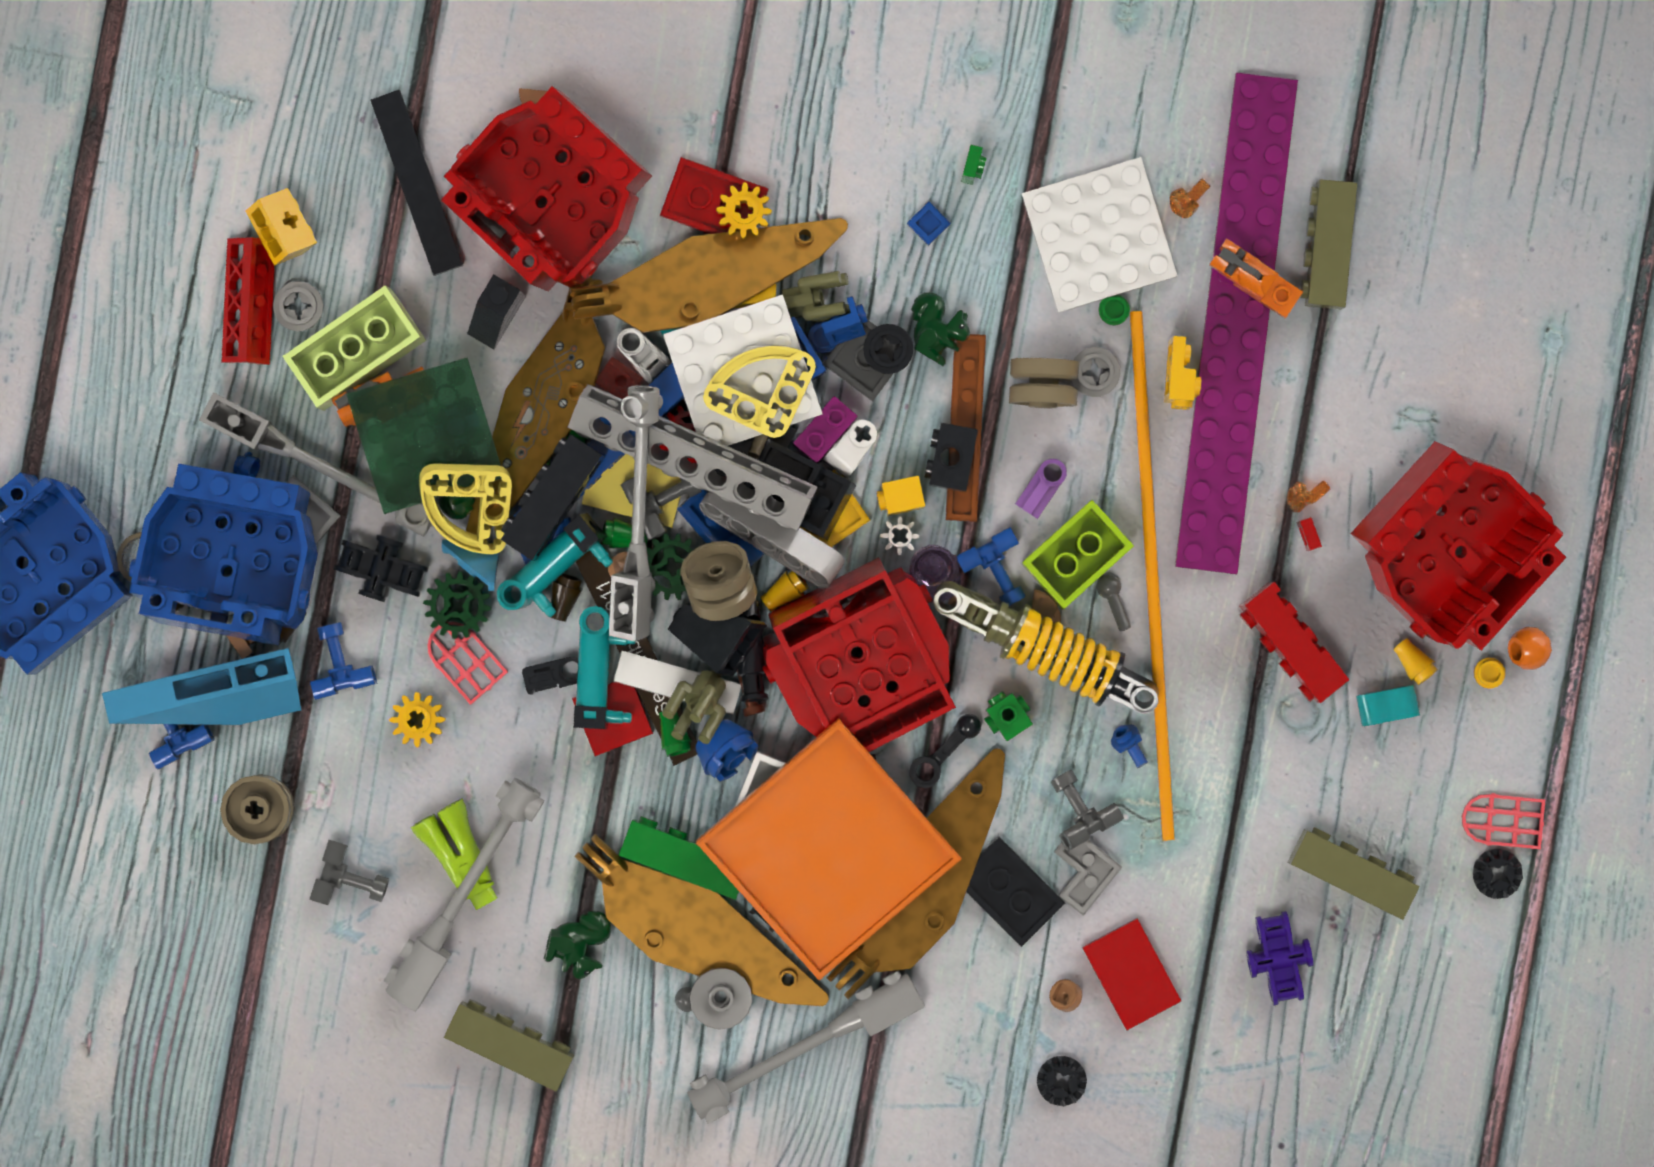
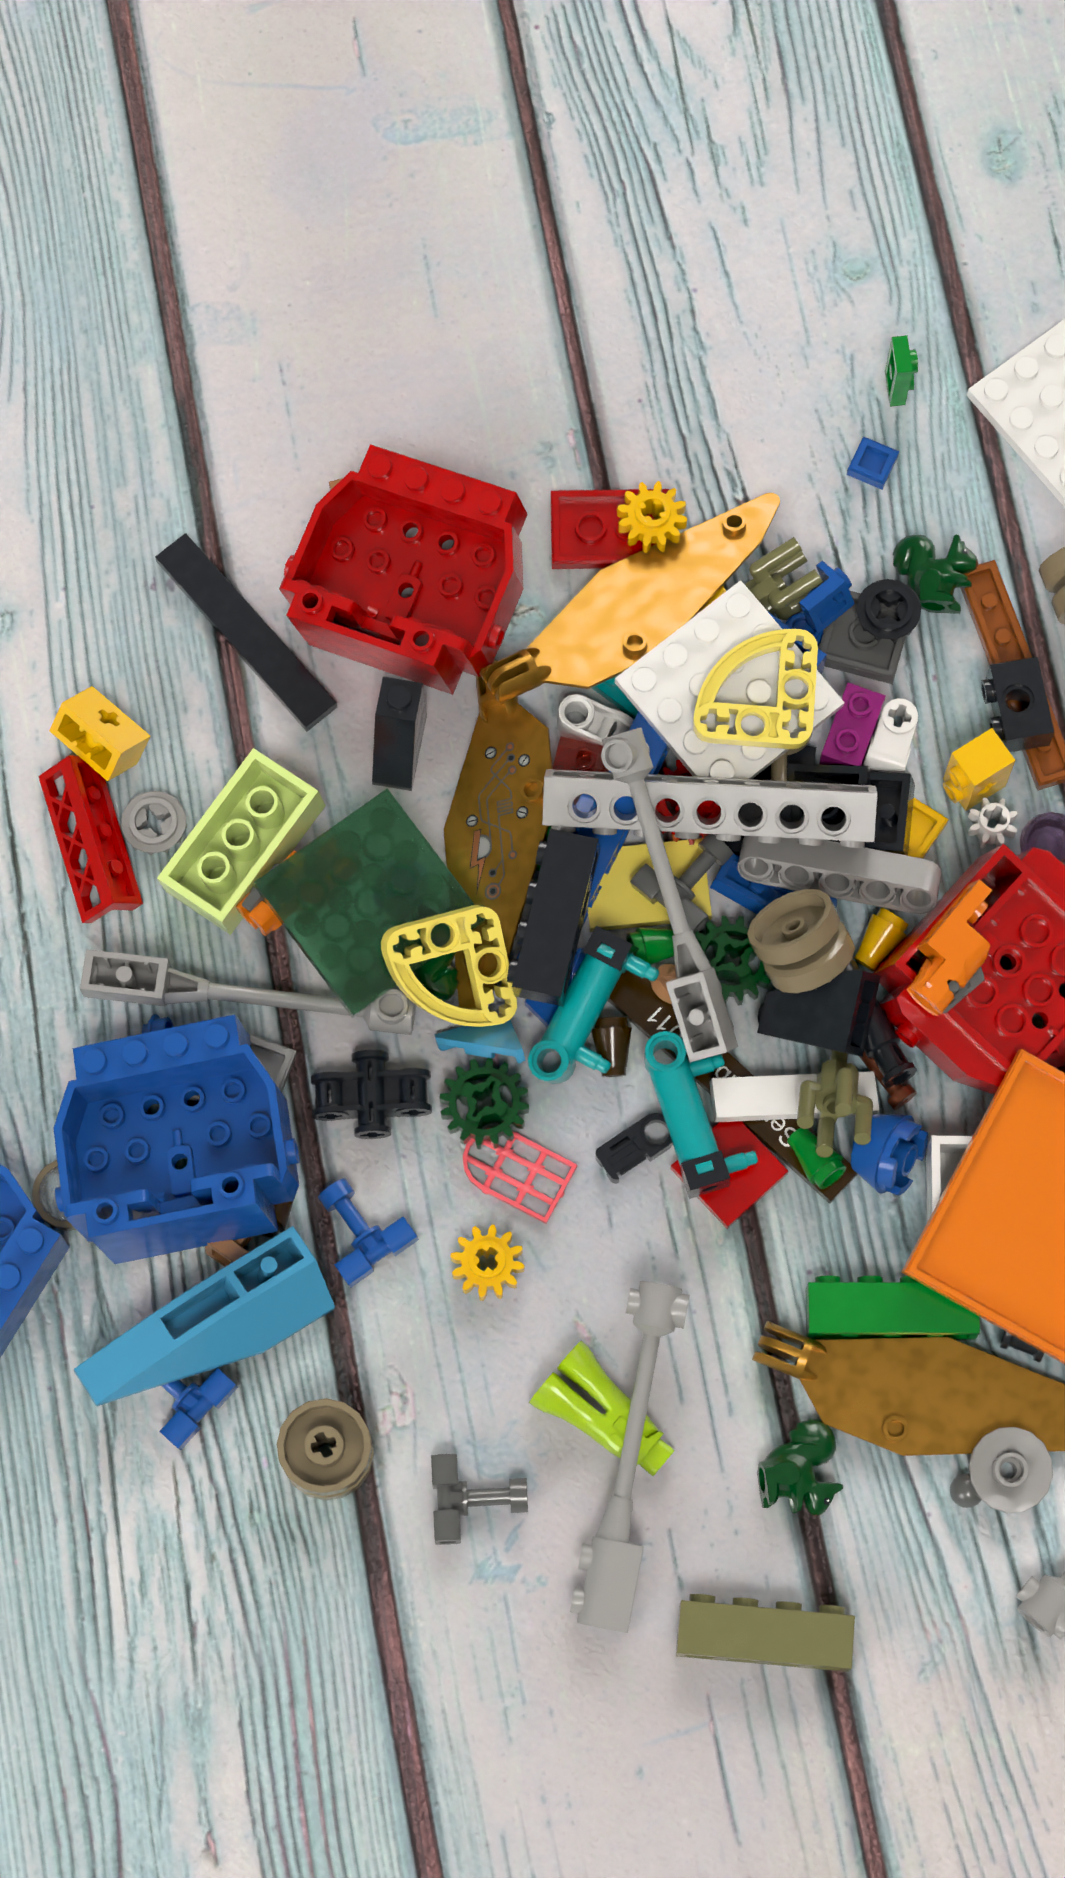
camera: 20 degrees left, 15 degrees down
(816, 639) = (954, 954): none -> orange plate

